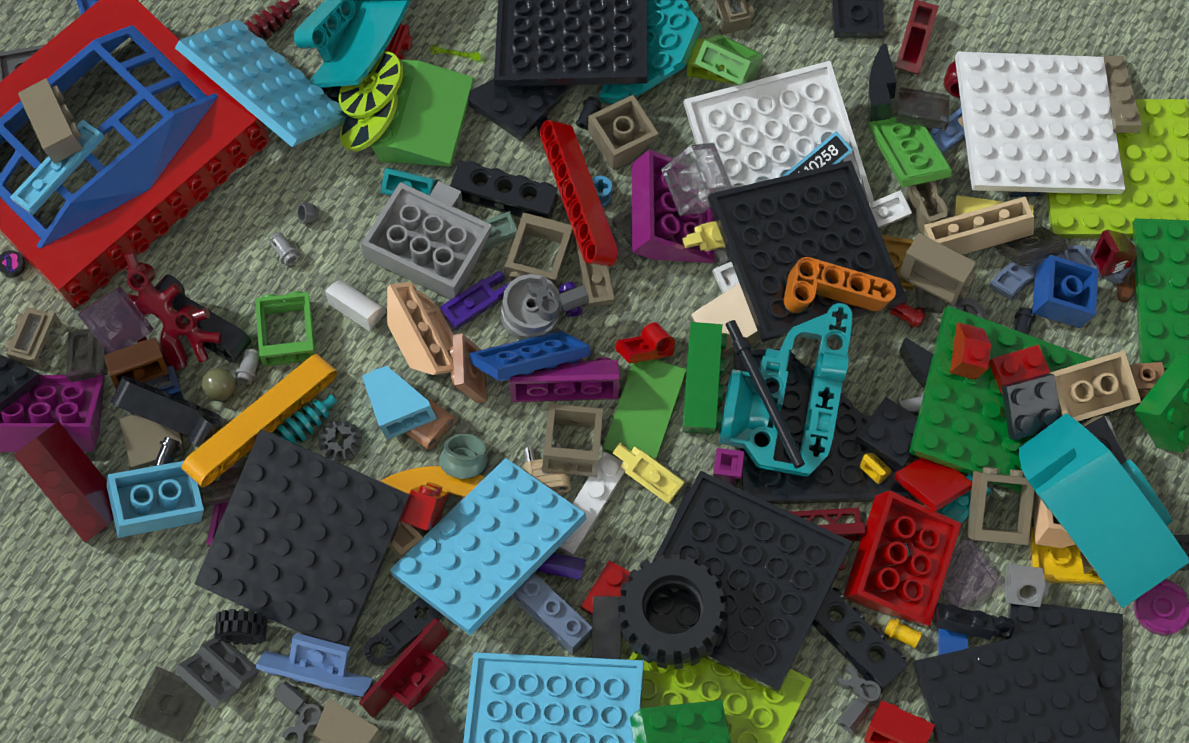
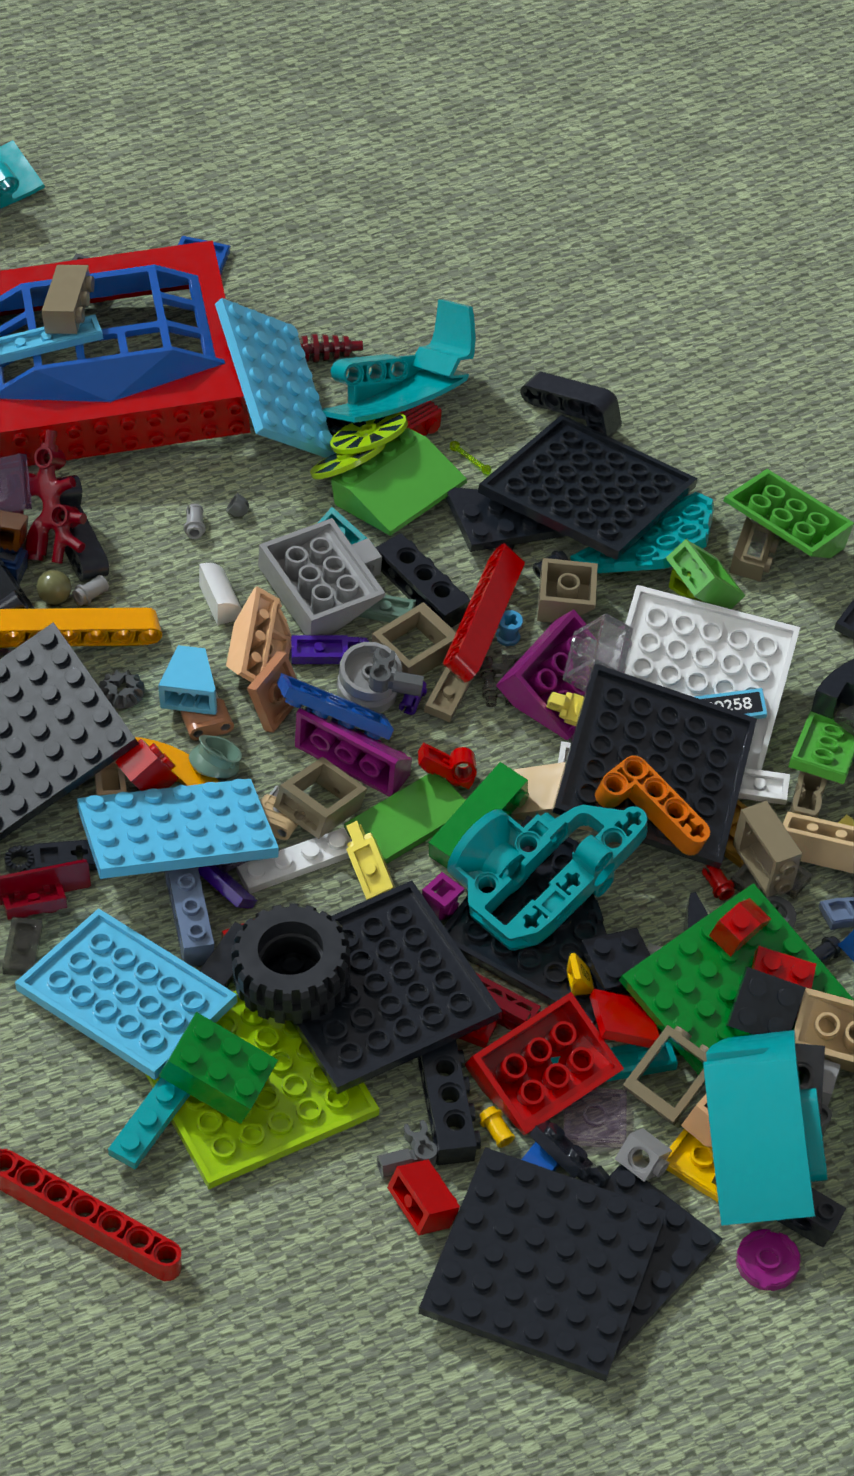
camera: 30 degrees right, 15 degrees down
(287, 352) = (130, 596): bright green window -> none
(320, 408) = (112, 655): teal piece -> none
(742, 347) = (523, 797): black bar -> none

